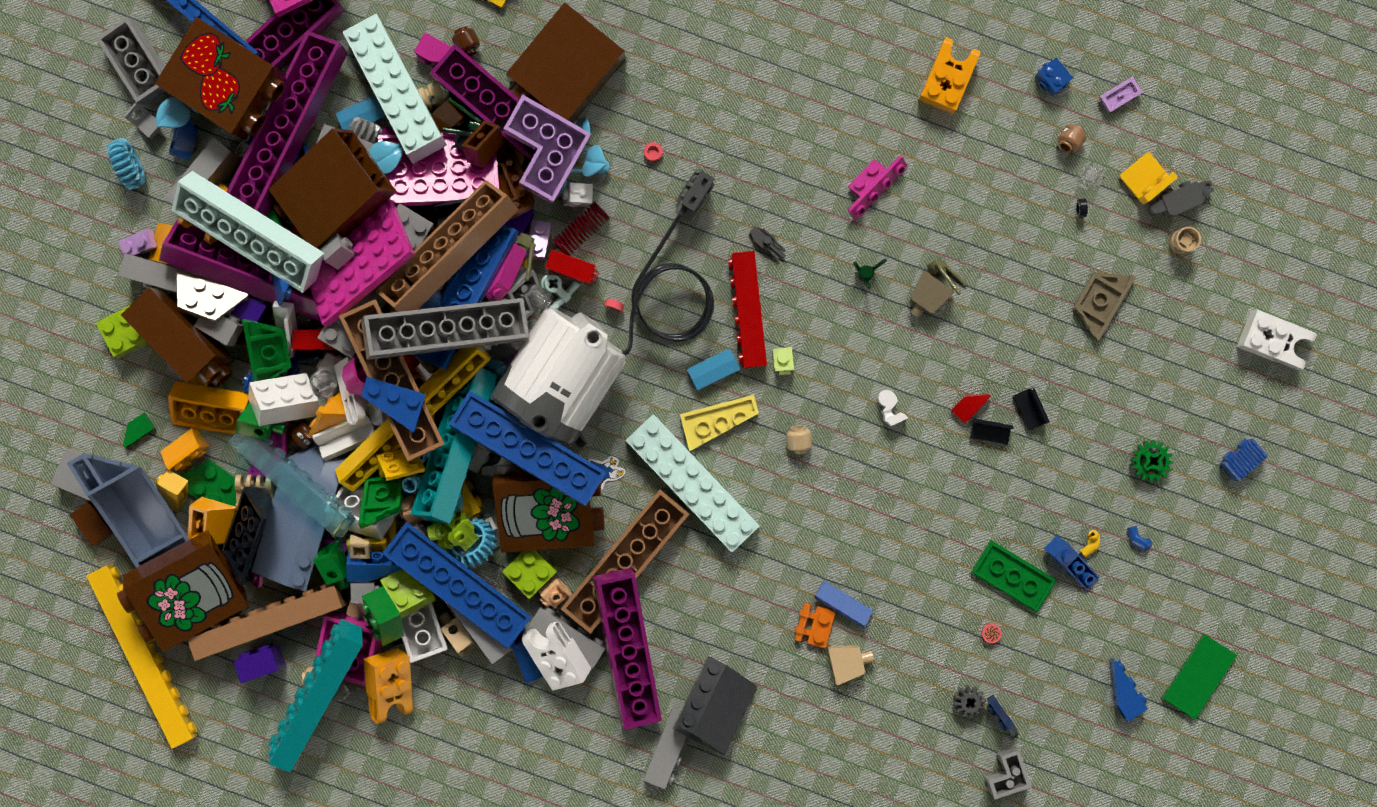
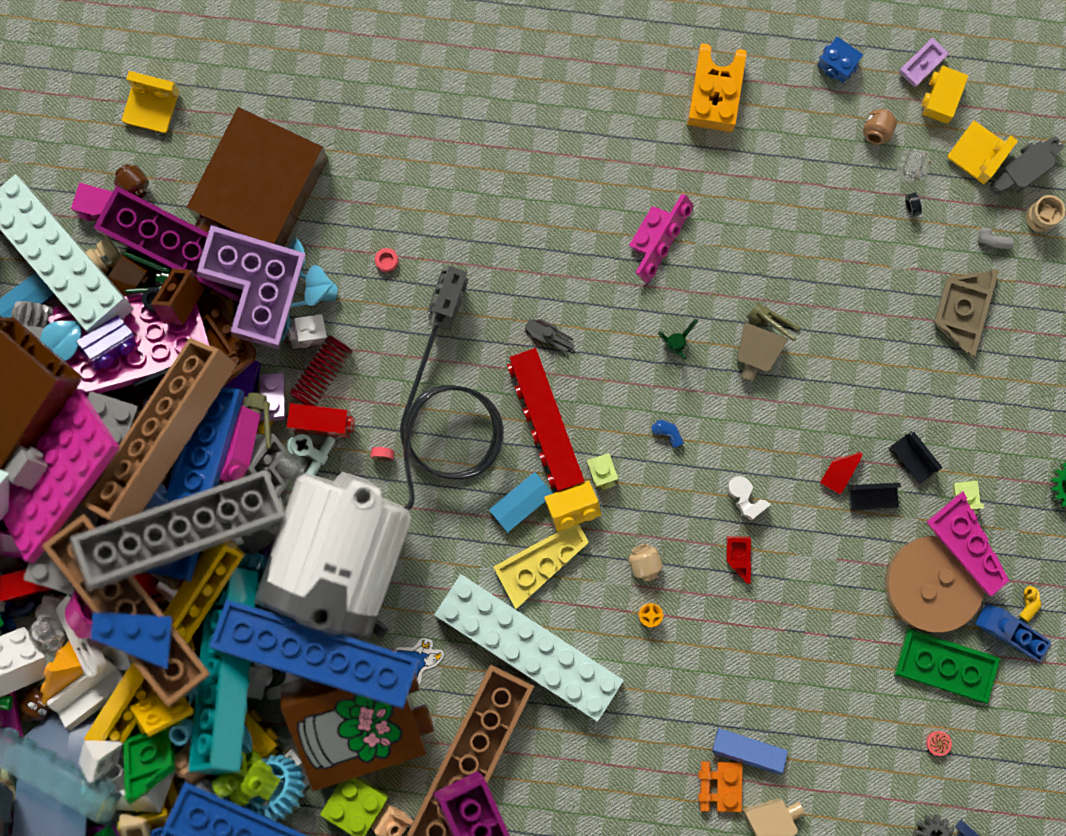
camera: 15 degrees left, 5 degrees down
(344, 487) = (99, 758): none -> white slope
(420, 168) = (106, 343): none -> brick
(753, 382) = (573, 506): none -> yellow brick
(793, 481) = (653, 613): none -> light orange wheel
(843, 340) = (668, 429): none -> blue arm
(873, 452) = (739, 554): none -> red slope
(1020, 510) = (931, 587): none -> medium nougat brick
(1052, 481) = (962, 535): none -> dark pink wing
(1063, 449) = (972, 493): none -> yellowish green bracket
(1130, 124) = (944, 94): none -> yellow brick
(1139, 253) = (994, 241): none -> light grey arm

